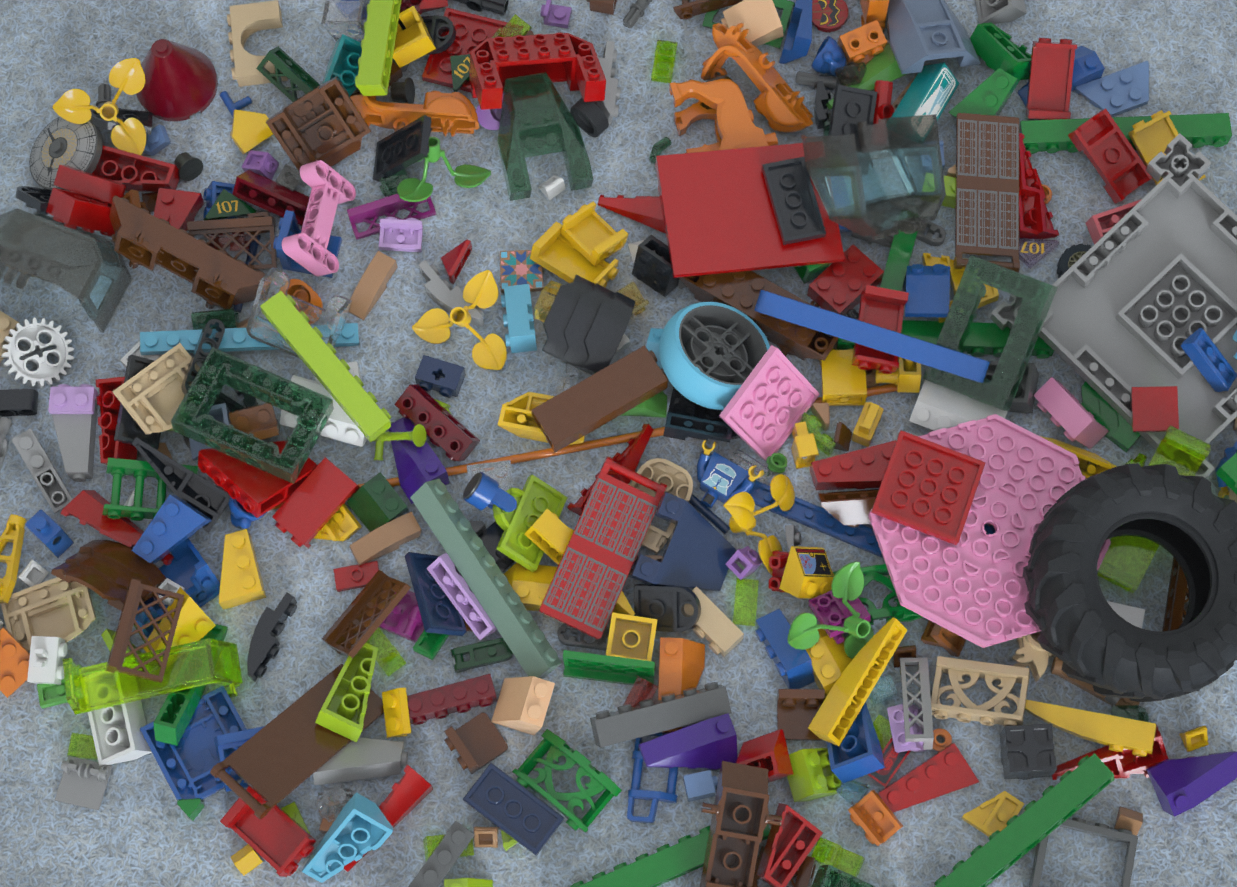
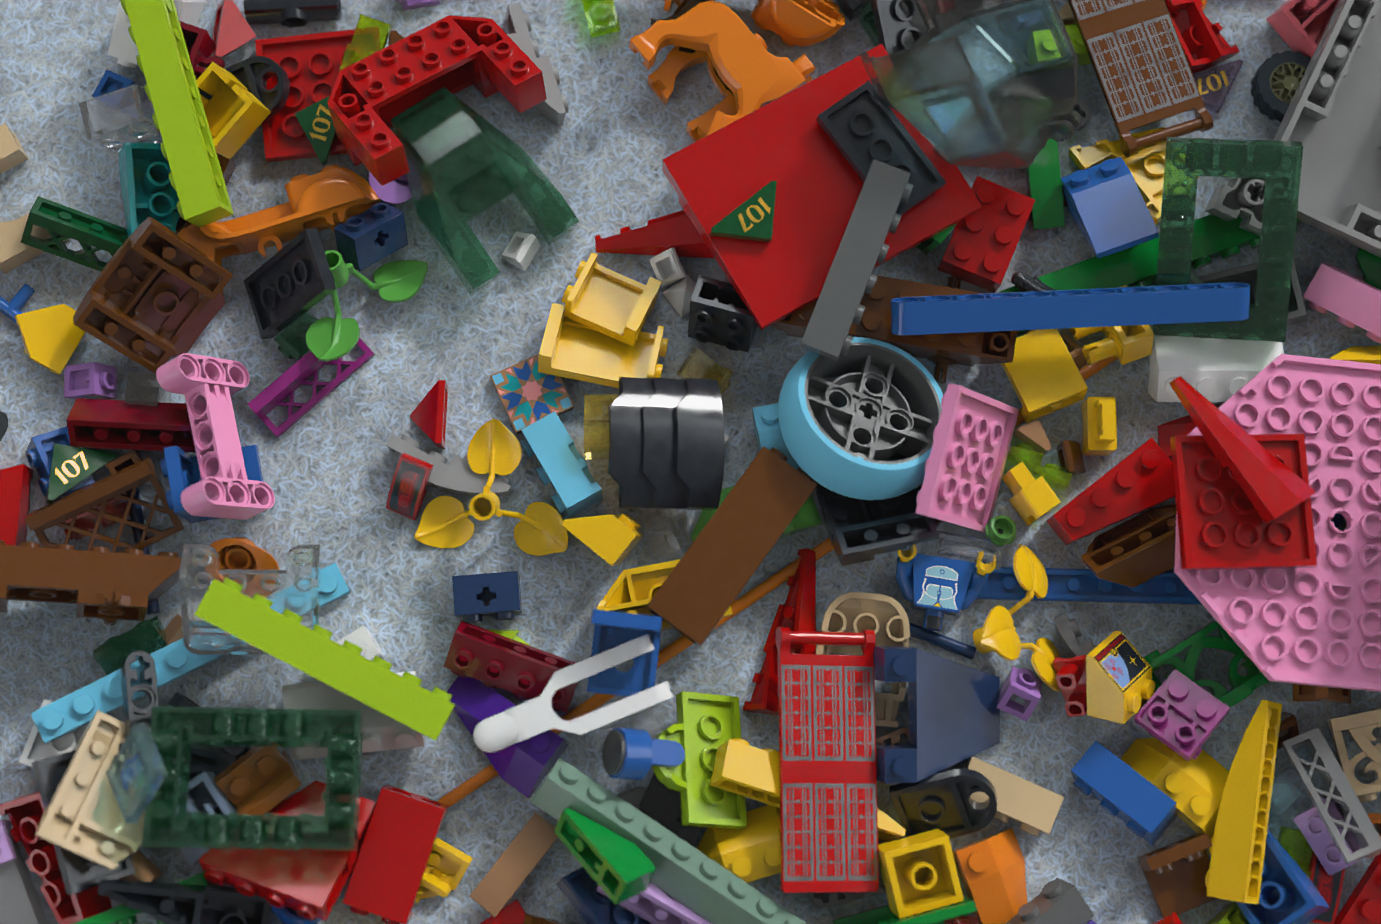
camera: 30 degrees left, 10 degrees up
(185, 380) = (136, 773): none -> clear light blue tile
(372, 285) = (331, 499): medium nougat slope -> none
(377, 503) = (483, 819): dark green slope -> none
(401, 234) = (340, 408): lavender bracket -> none
(403, 91) = (248, 190): pearl dark grey piece -> none
(418, 436) = (497, 703): lime piece -> none
(420, 294) = (409, 486): none -> slope
(434, 447) = (538, 715): none -> white piece
(440, 543) = (609, 858): none -> green slope
(464, 141) = (371, 235): none -> dark blue brick
(509, 420) = (614, 630): none -> blue bracket
(530, 367) = (607, 535): none -> yellow slope
(589, 117) = (533, 129): black tyre -> none
(637, 229) = (667, 267): none -> white slope
(658, 147) = (645, 136): clear green arm -> none
(694, 209) = (751, 219): none -> dark green tile
(745, 602) = (1042, 746): clear neon green slope -> none
(747, 256) = (856, 259): none -> dark grey brick
(848, 585) = (1221, 739): bright green plant -> none
(884, 309) = (1067, 263): red panel -> none
(944, 473) = (1261, 475): none -> red wedge

